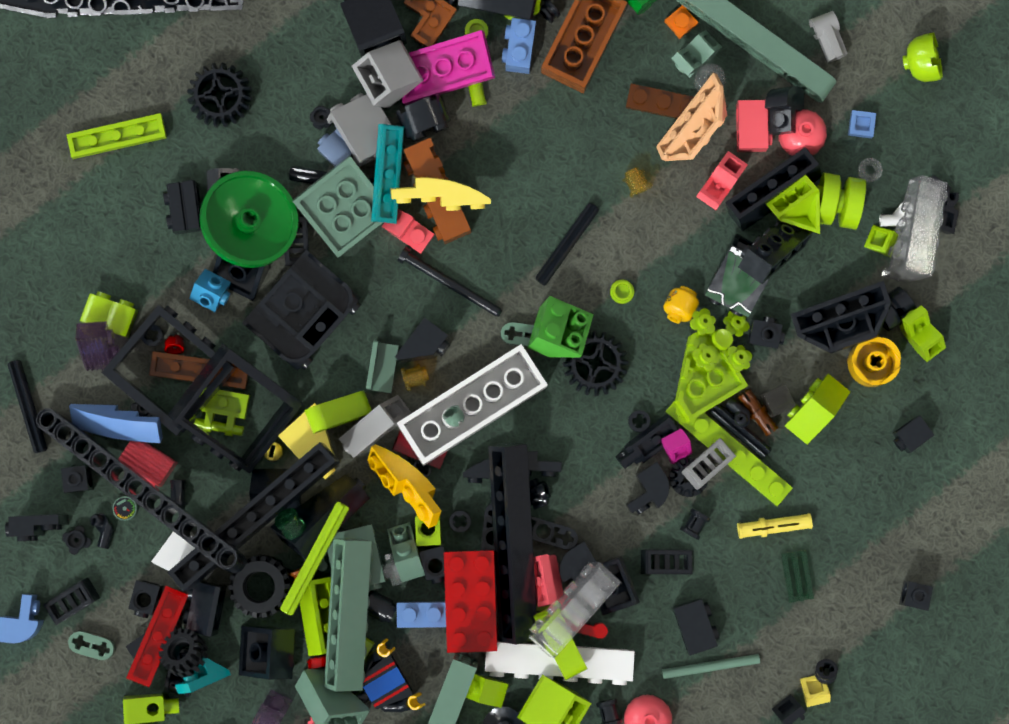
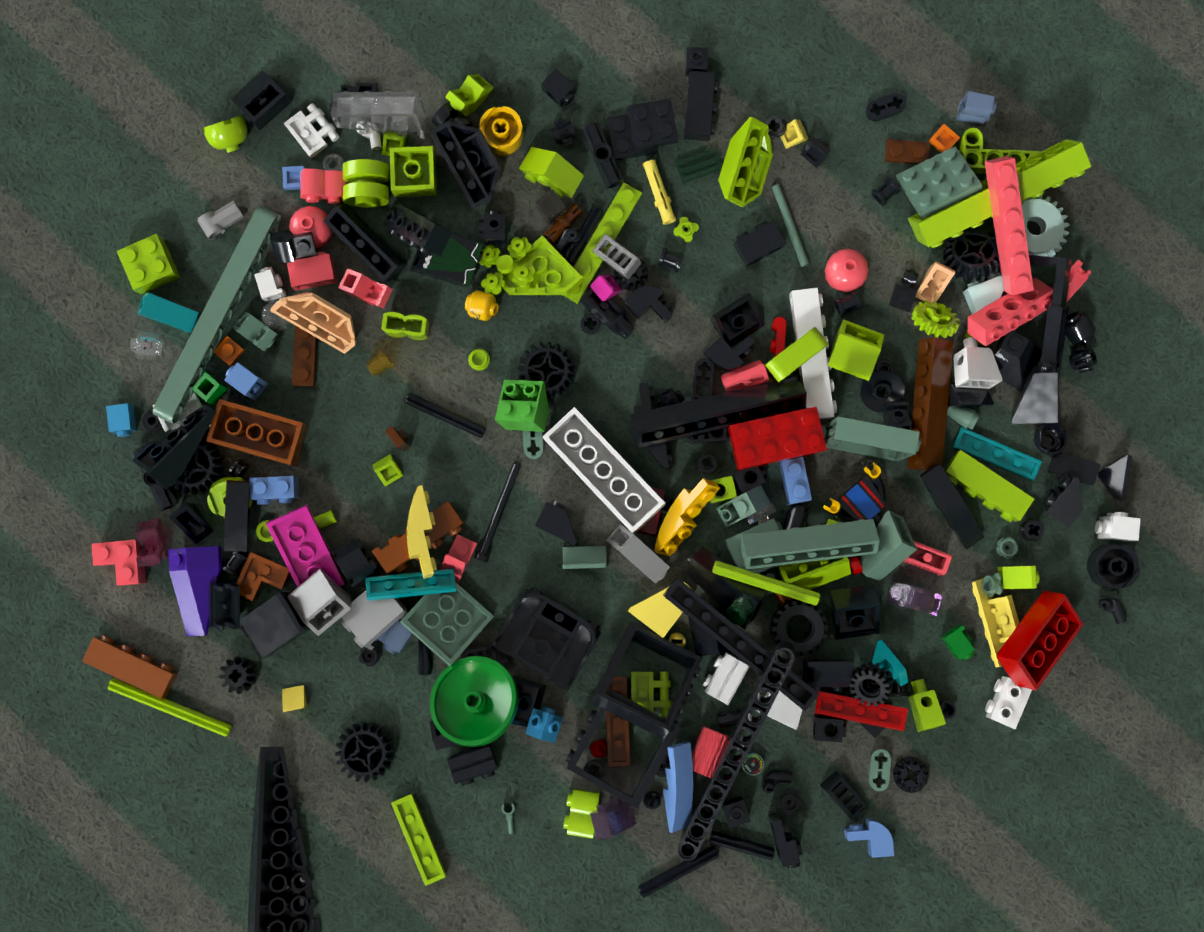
camera: 95 degrees left, 0 degrees up
(41, 480) = (742, 845): none -> black axle
(84, 668) = (900, 773): none -> black gear
(111, 387) = (647, 797): none -> black hinge
(121, 236) = (509, 816): none -> sand green hand
(221, 495) = (725, 678): none -> white brick
(291, 29) = (294, 698): none -> light yellow slope
(338, 411) = (632, 588): lime beam -> none
(414, 376) = (587, 527): clear yellow brick -> none
(453, 416) = (617, 483): sand green hinge -> none
(487, 690) = (850, 407): lime brick -> none
(518, 171) = (387, 470): none -> lime slope
(549, 187) = (398, 437): none -> reddish brown plate
(573, 609) = (766, 345): clear wedge -> none
(642, 34) = (245, 381): none -> medium blue brick
(646, 562) = (710, 296): black slope -> none
(671, 222) = (399, 326): none -> lime brick
(720, 547) = (686, 235): none -> lime plate
(746, 77) = (269, 284): none -> white brick
(788, 629) = (746, 163): none -> lime wedge
(798, 205) = (375, 216): lime slope -> none
(812, 472) = (607, 167): none -> black piece
(844, 256) = (413, 171): none -> lime brick
(846, 153) = (321, 185): none -> coral brick
(847, 519) = (642, 129): none -> black bracket
(861, 430) = (563, 132): none -> black gear
(864, 590) = (700, 106): none -> black brick
(909, 145) = (305, 133): none -> white plate
(956, 102) = (261, 100): none -> black slope

